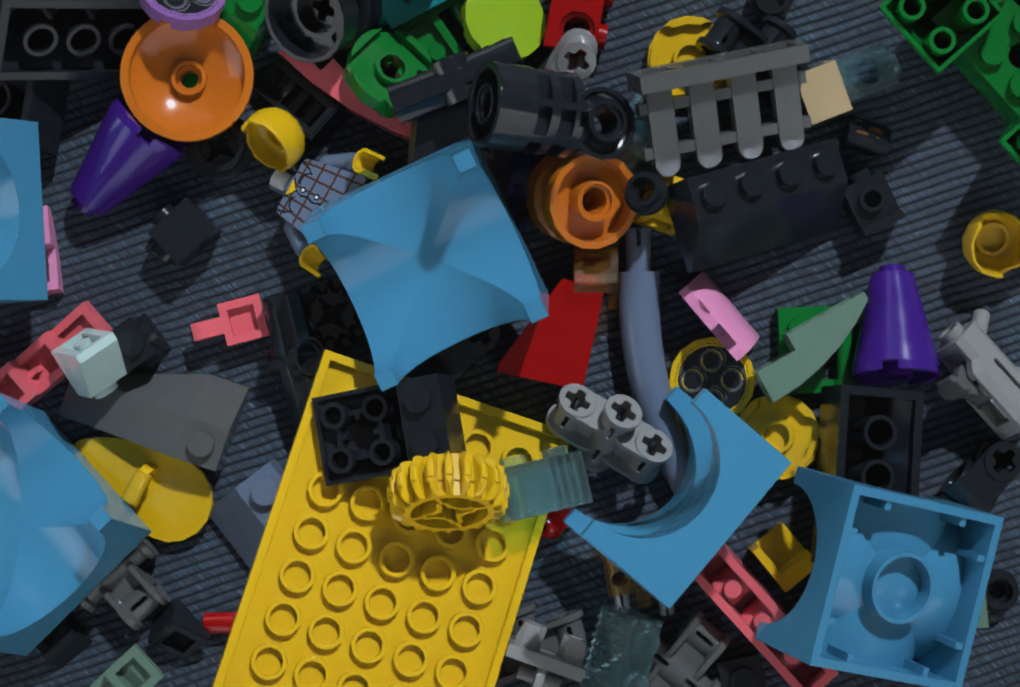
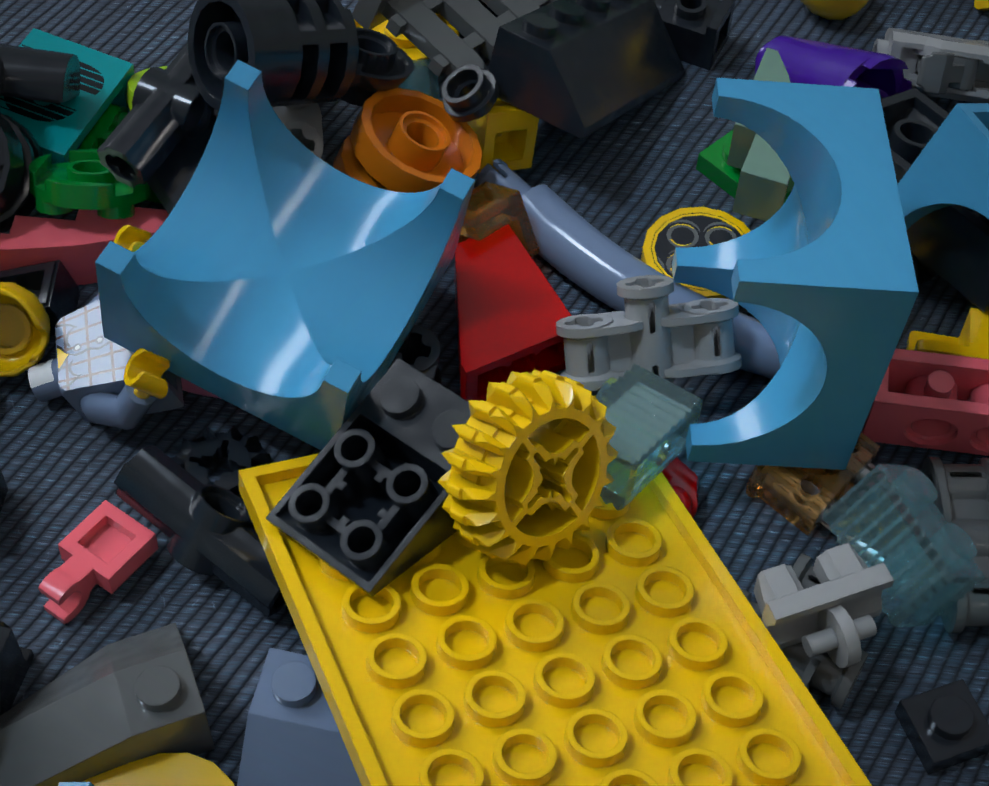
camera: 45 degrees left, 35 degrees down
(719, 315) = (666, 183): bright pink slope -> none

